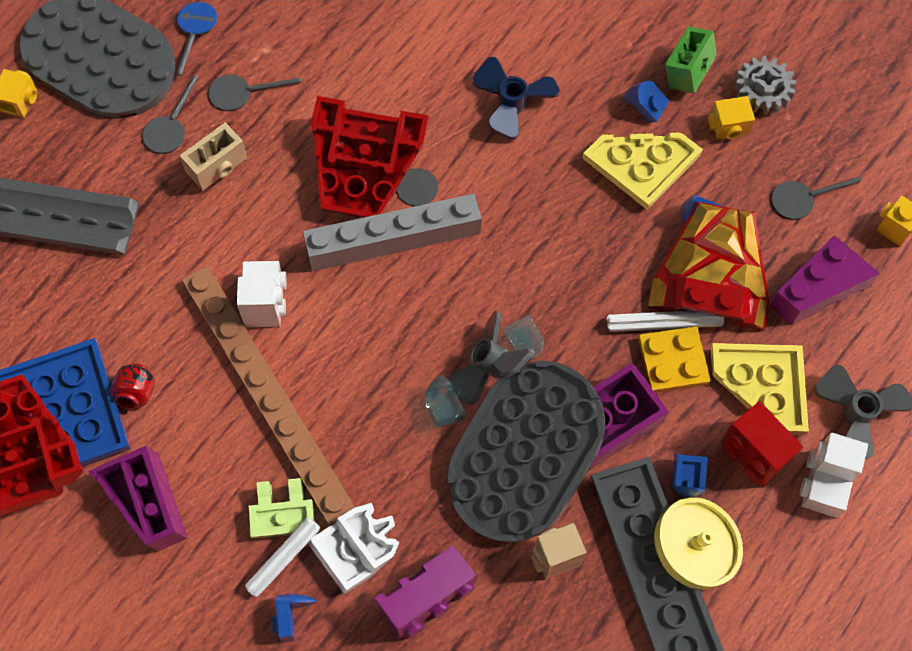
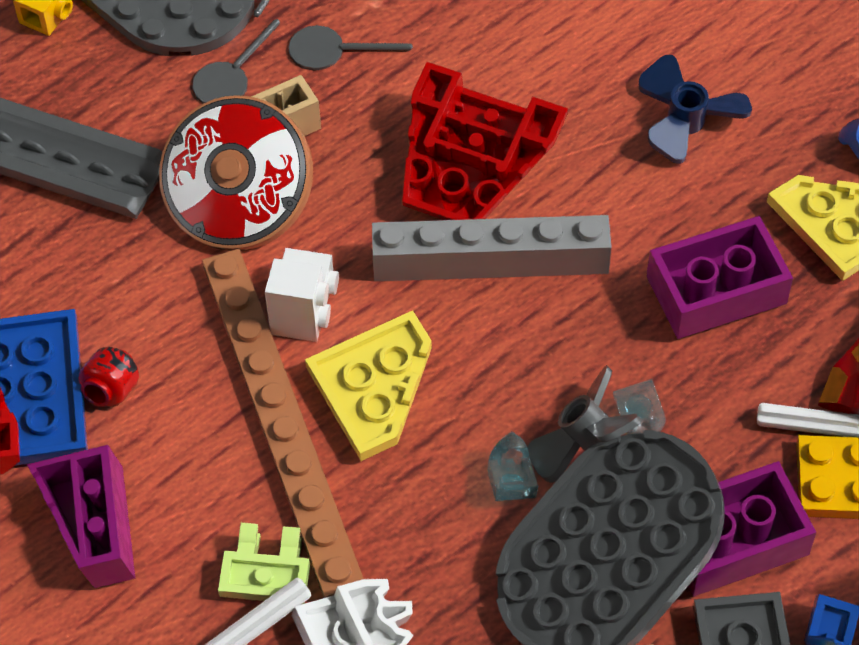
camera: 15 degrees right, 10 degrees down
(192, 208) = (236, 173): none -> dish
(329, 351) = (373, 381): none -> light yellow plate
(418, 187) = (536, 199): dark grey piece -> none
(561, 225) = (719, 277): none -> magenta brick

